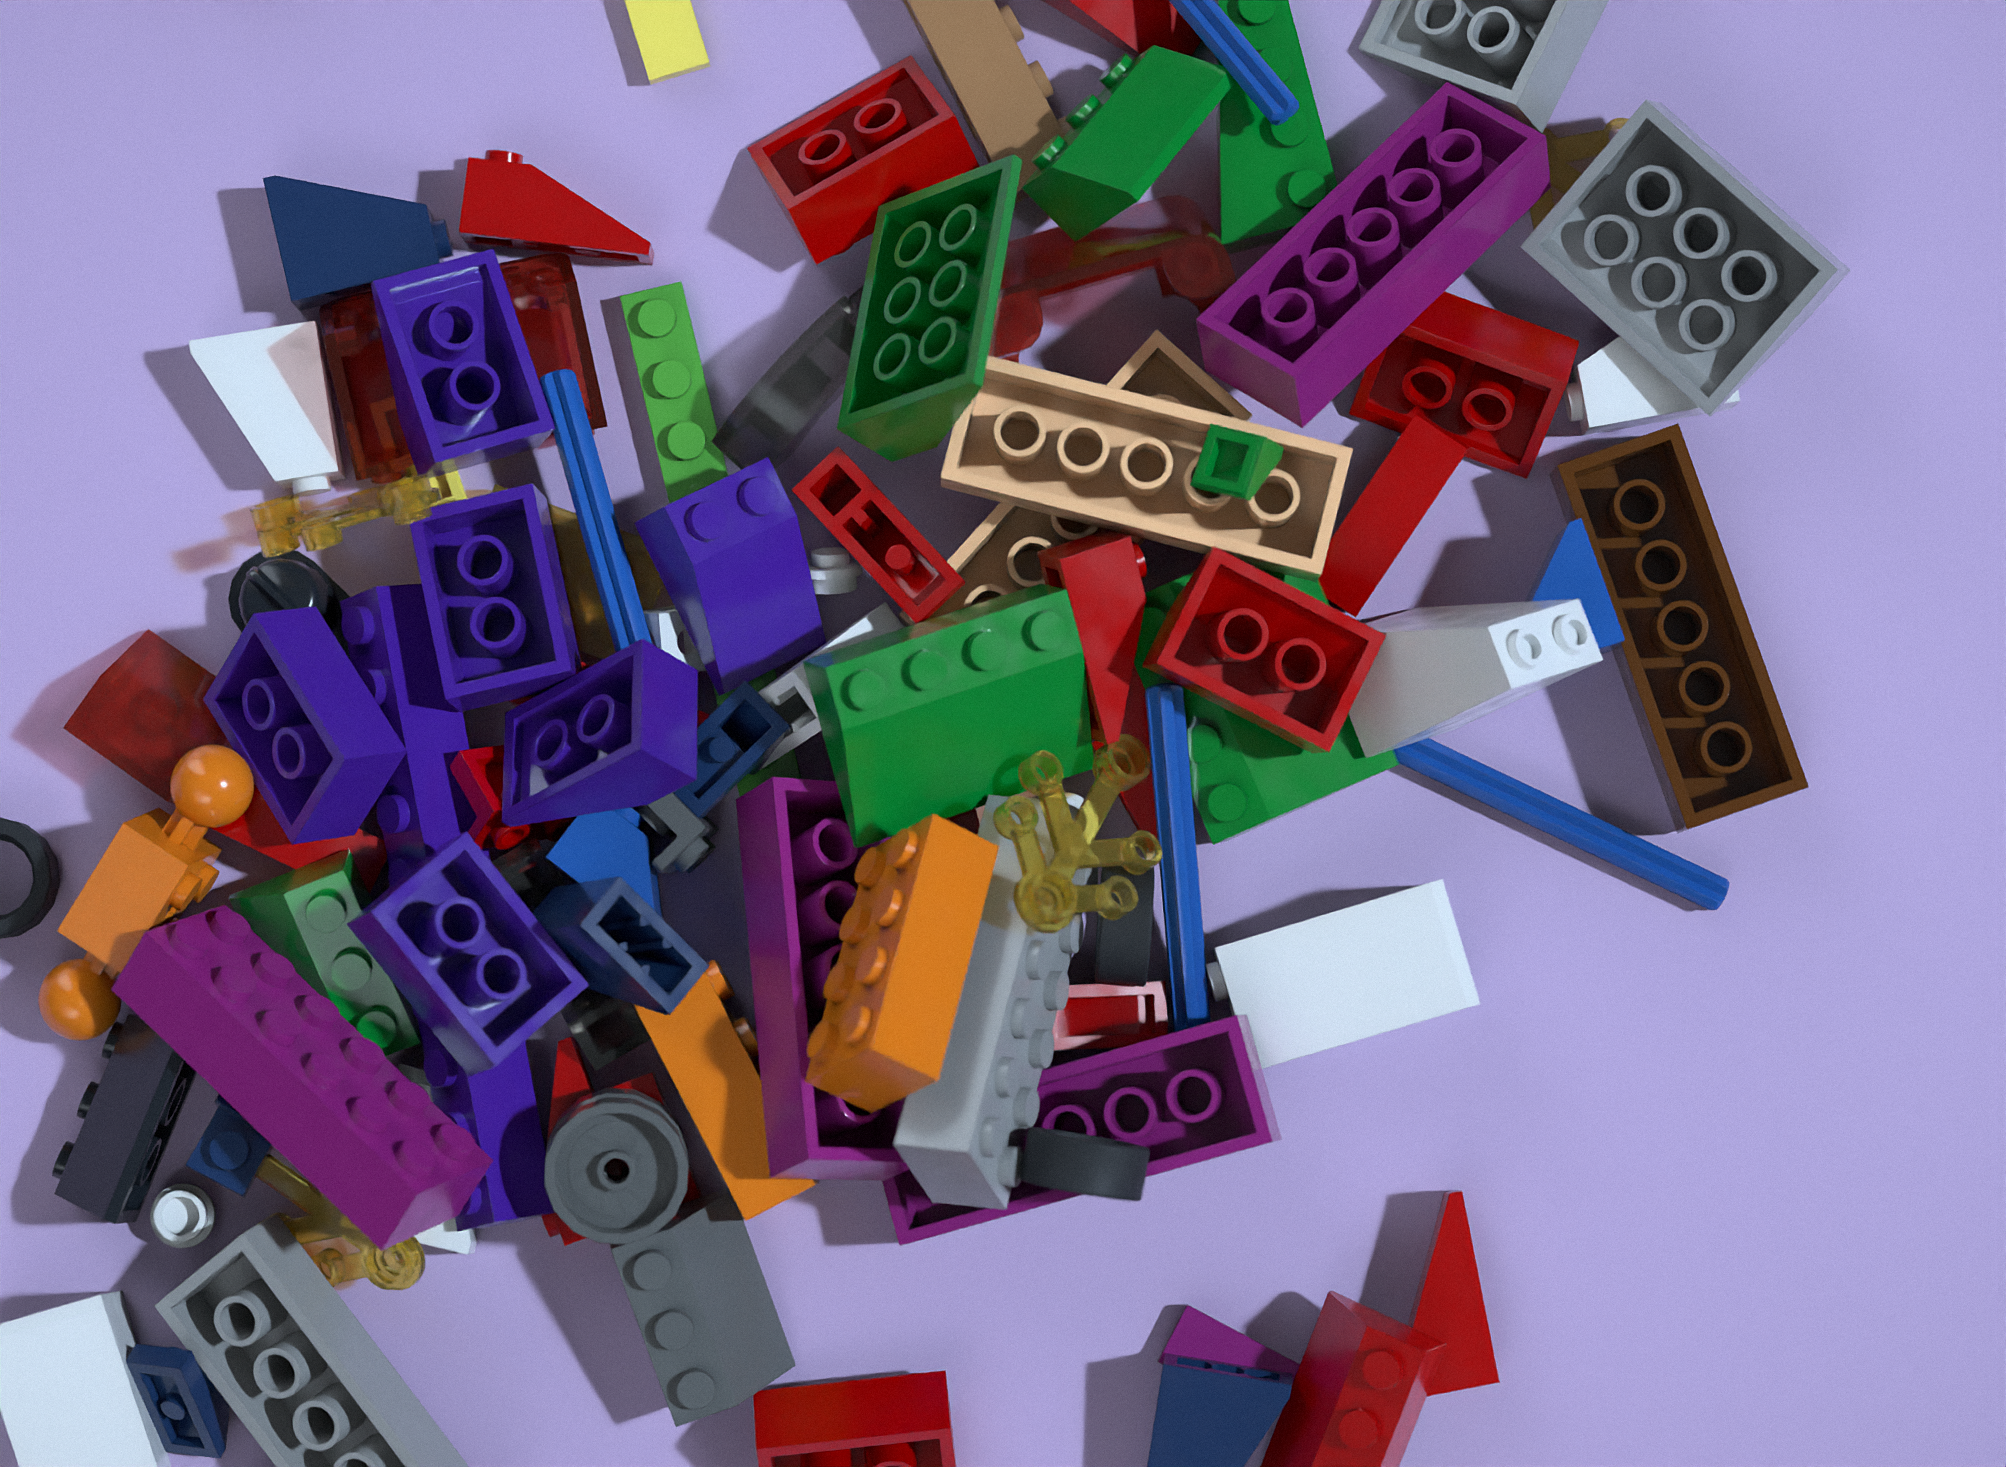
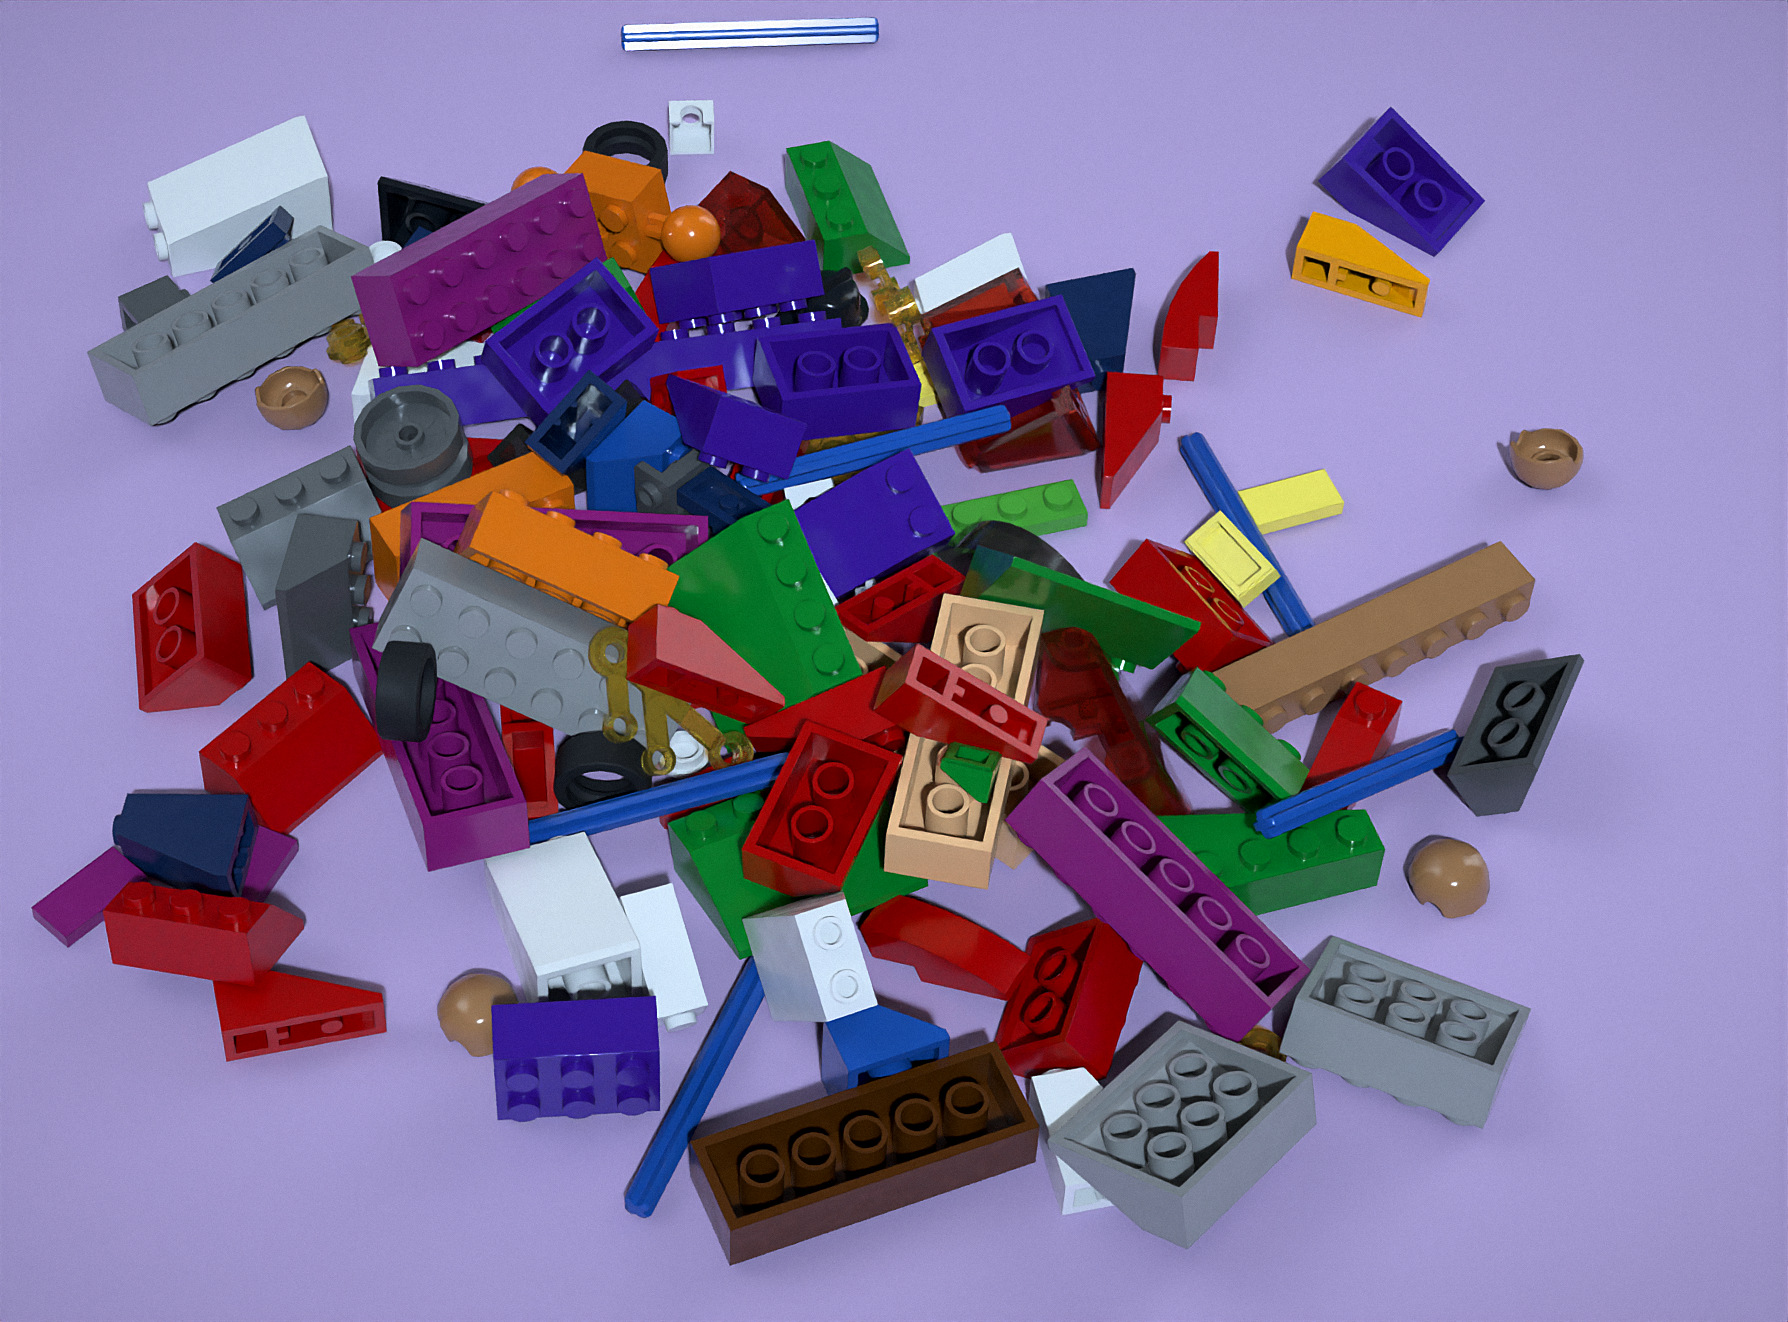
camera: 85 degrees right, 35 degrees down
(107, 570) = (841, 207): none -> green slope
(338, 108) = (1191, 320): none -> red slope
(447, 1337) = (292, 397): none -> medium nougat hair
(726, 76) = (1225, 498): none -> blue axle
(769, 101) = (1232, 559): none -> light yellow tile
(852, 1281) = (322, 592): none -> dark grey slope
(1059, 1314) = (292, 750): none -> red slope
(1067, 809) = (696, 666): none -> red slope
(1159, 470) = (952, 706): none -> red slope
(1388, 861) = (666, 956): none -> white slope
(1447, 1077) = (467, 1012): none -> medium nougat hair
(1552, 960) = (576, 1058): none -> dark purple brick

